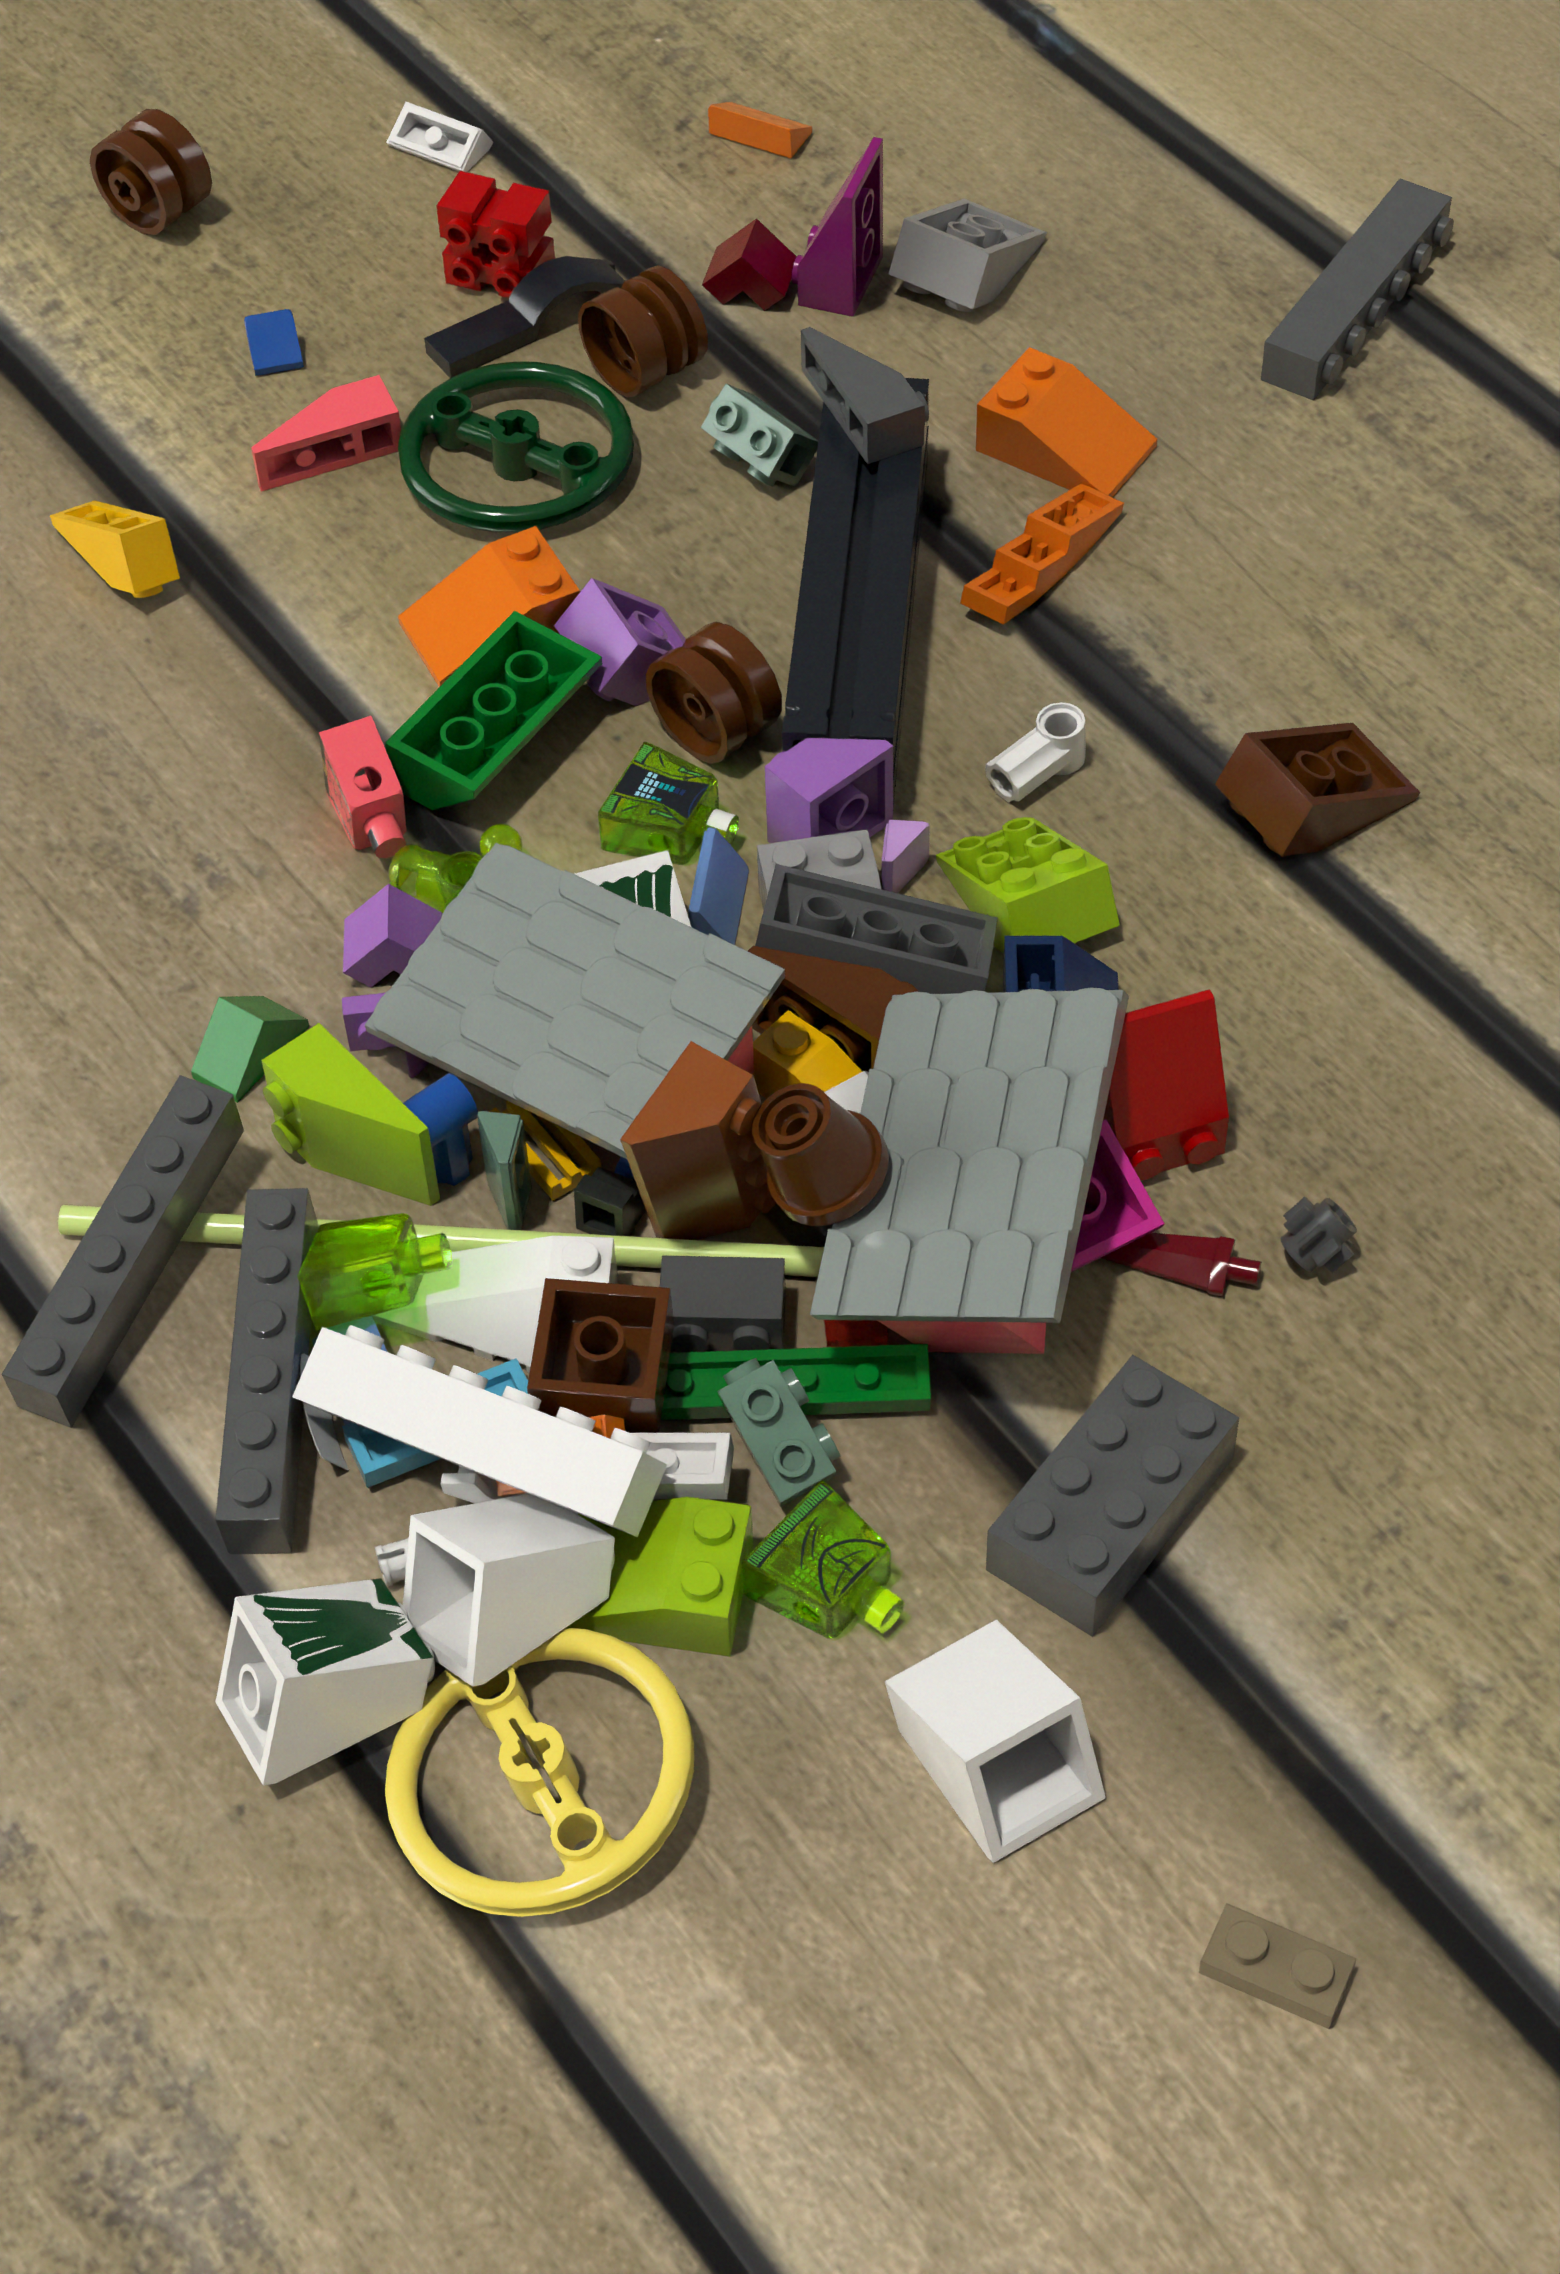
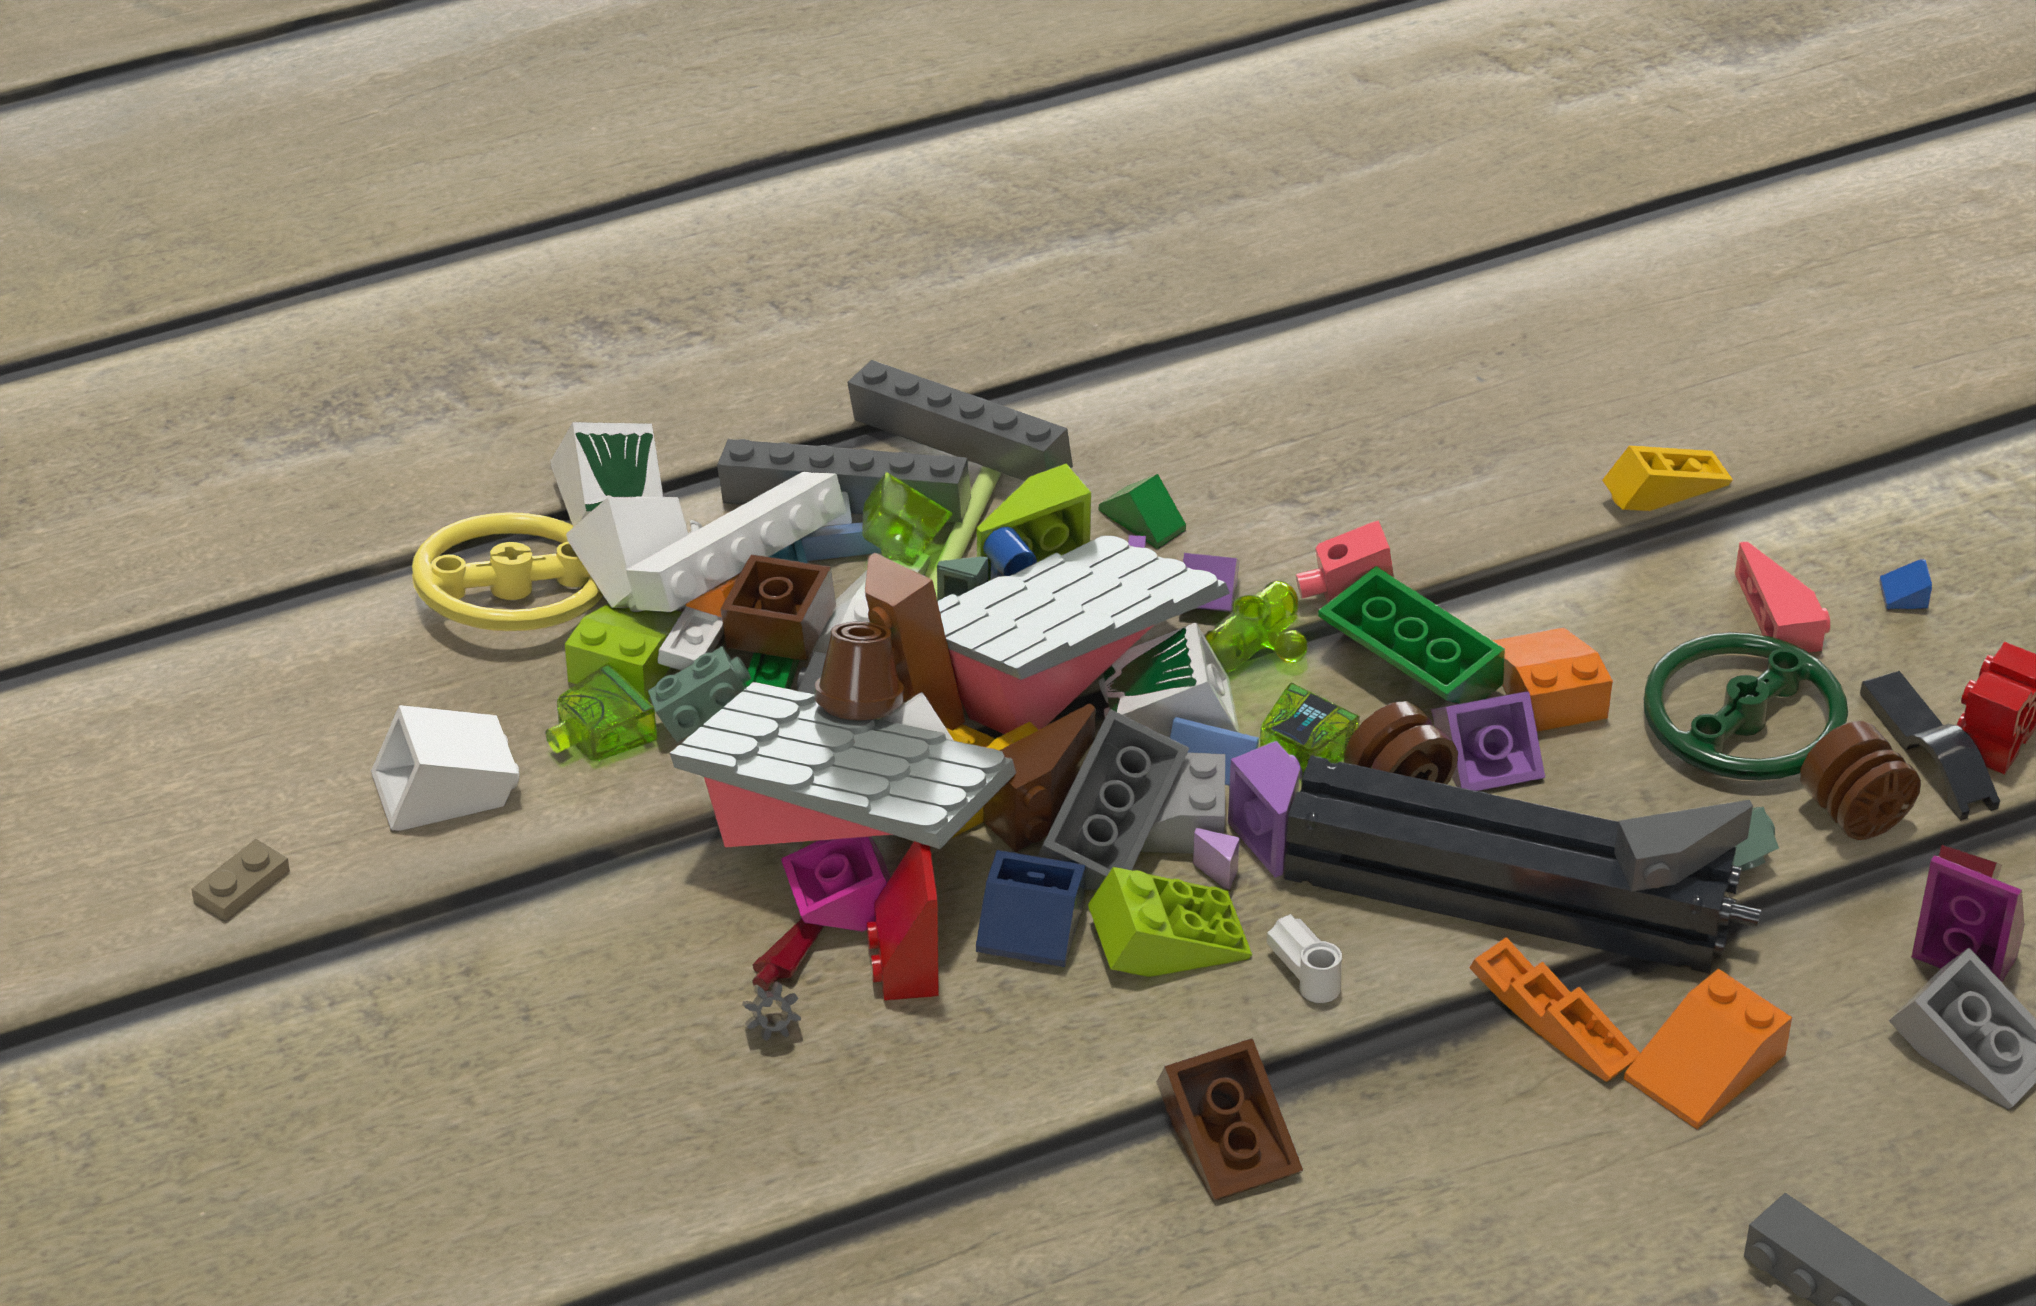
camera: 100 degrees right, 10 degrees down
(1111, 1494) = (598, 858): dark grey brick -> none

